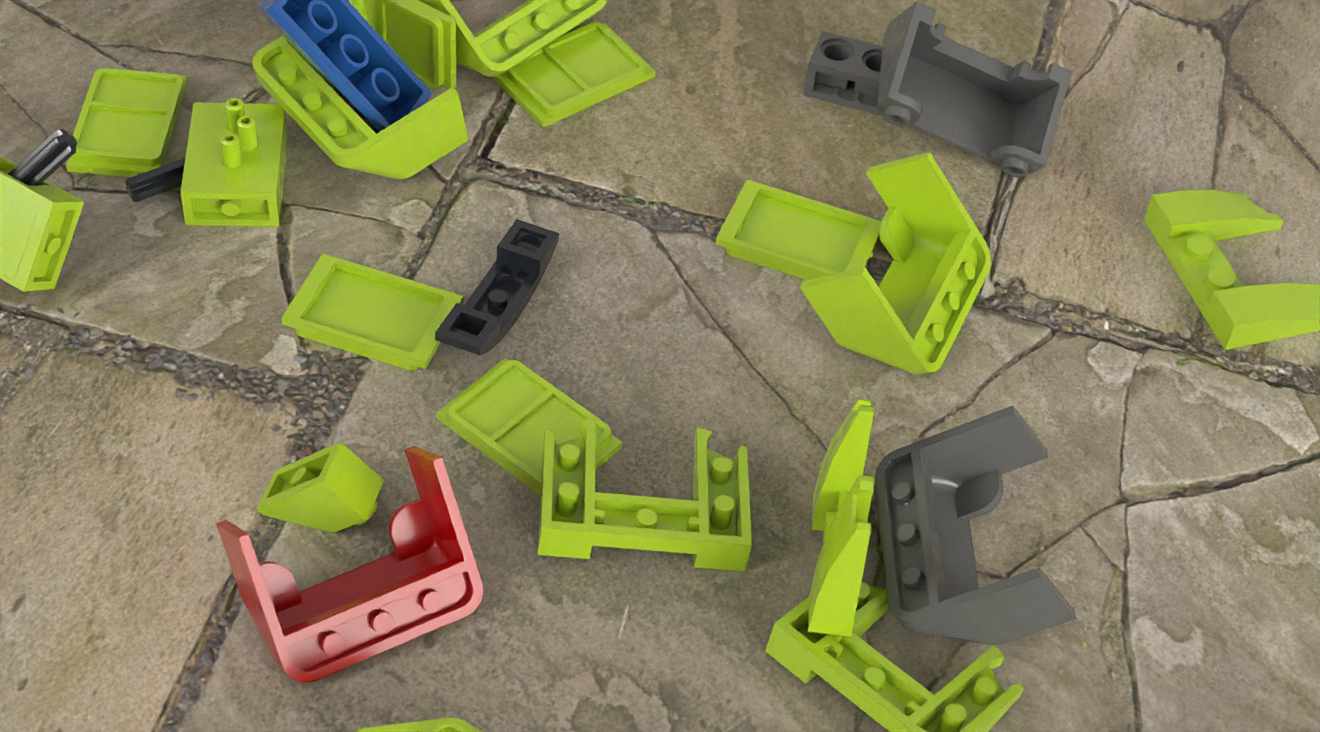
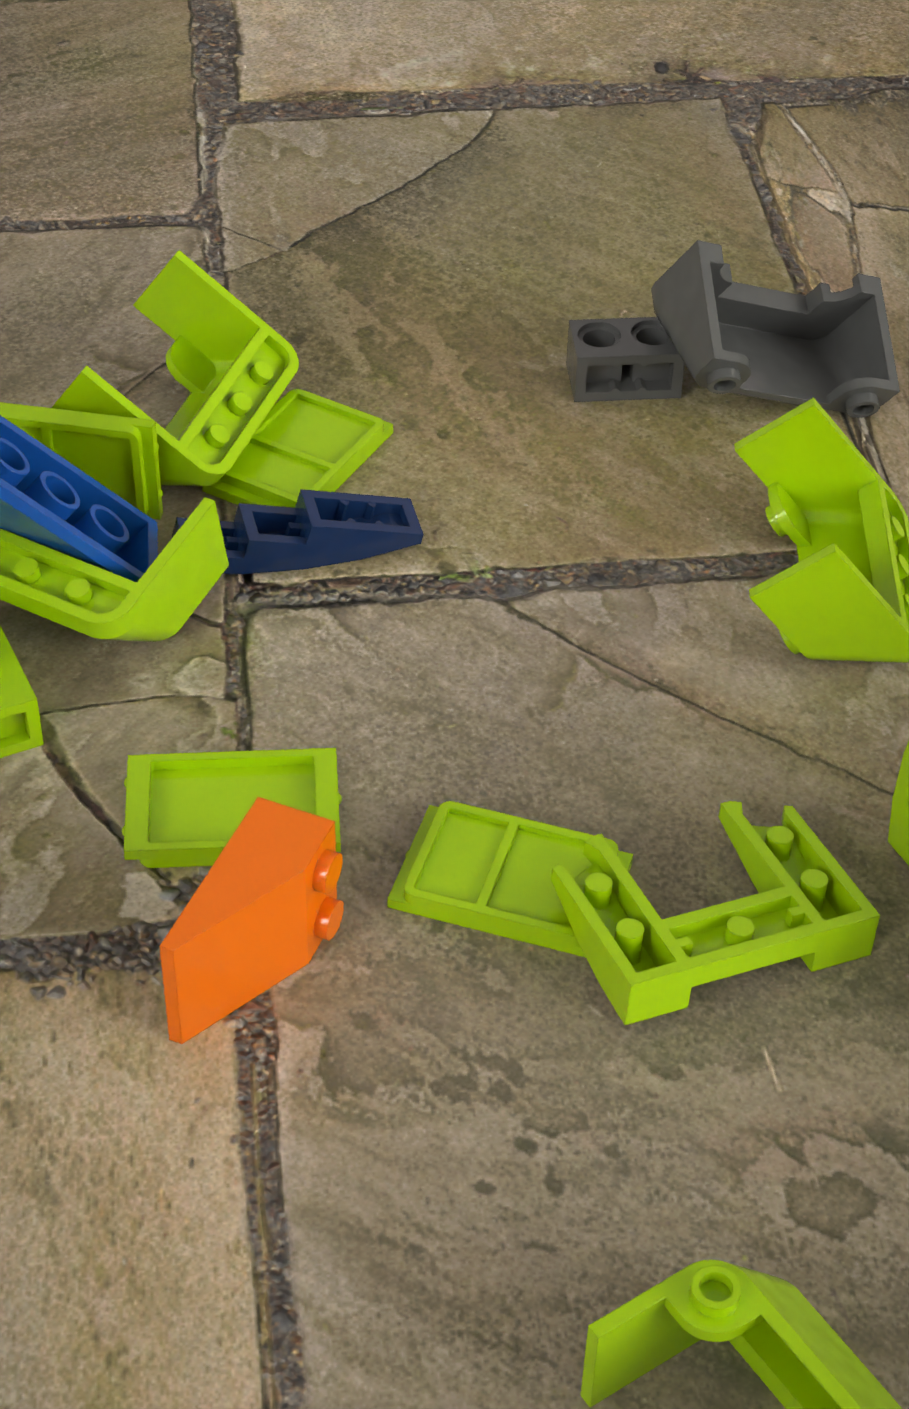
camera: 20 degrees left, 5 degrees down
(322, 392) = (252, 916): none -> orange slope
(323, 491) = (313, 1044): lime slope -> none
(376, 605) = (469, 1161): red windscreen -> none
(502, 292) = (378, 723): black slope -> none
(543, 136) = (317, 532): none -> dark blue slope
(796, 233) = (677, 552): lime piece -> none

